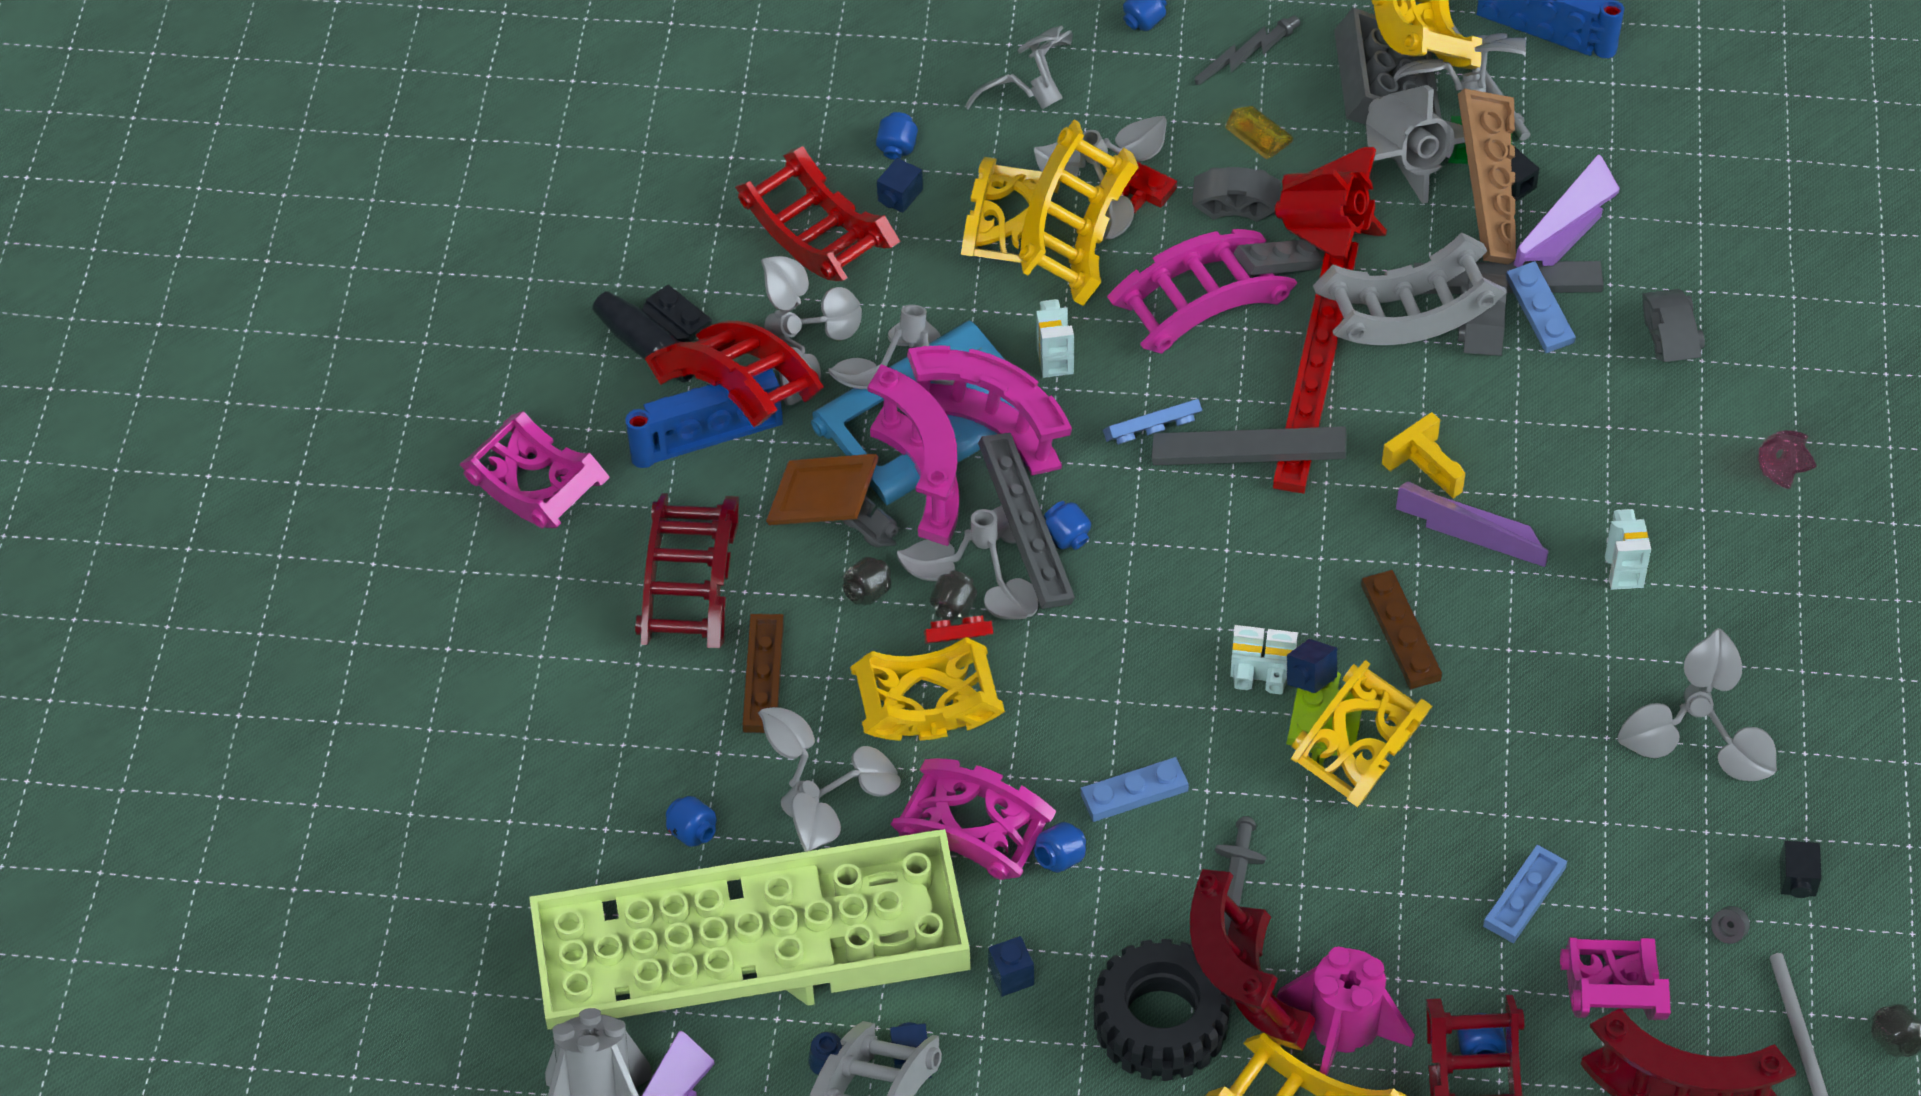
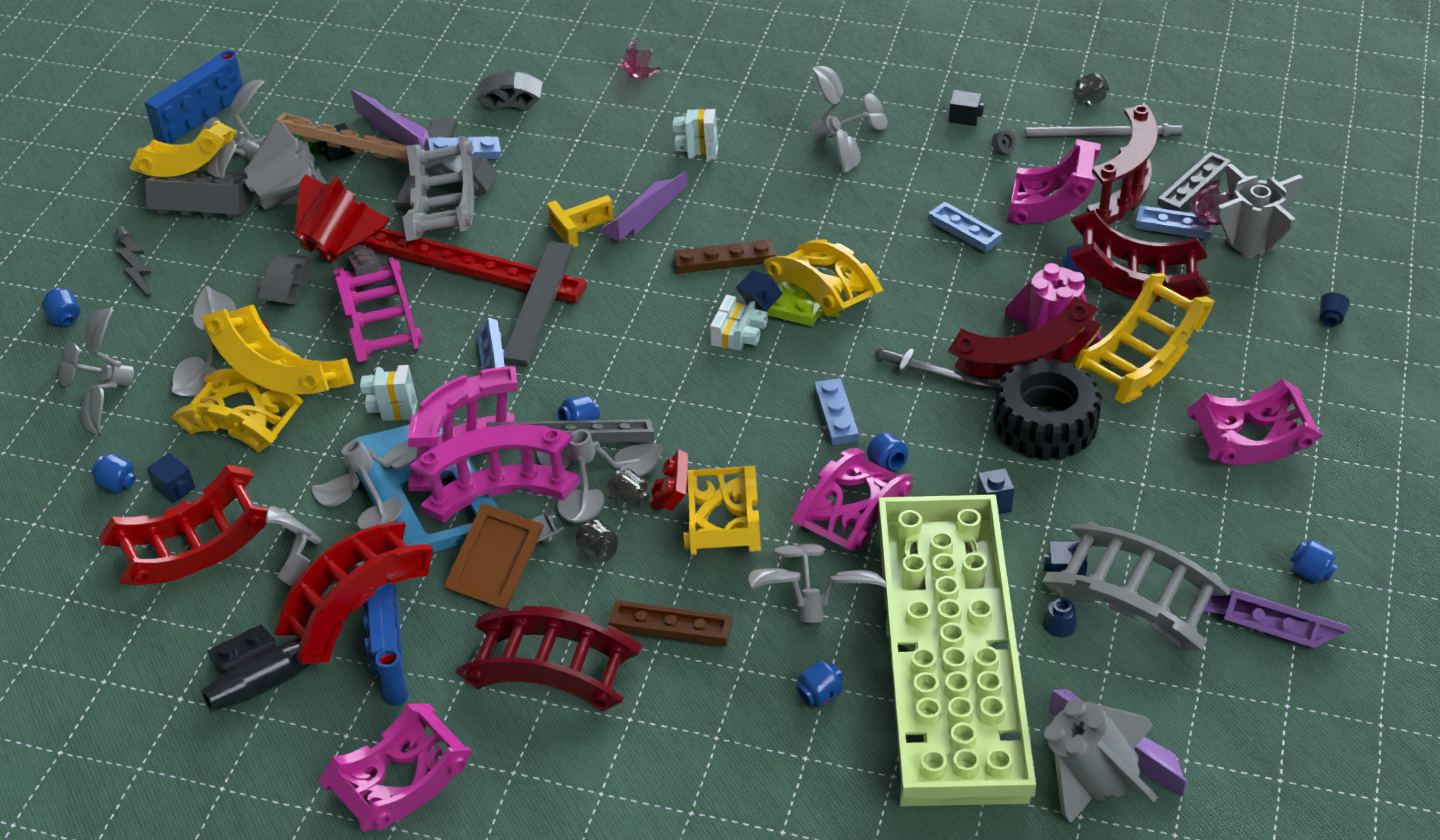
camera: 80 degrees left, 10 degrees down
(1258, 131) = (222, 267): clear yellow slope -> none

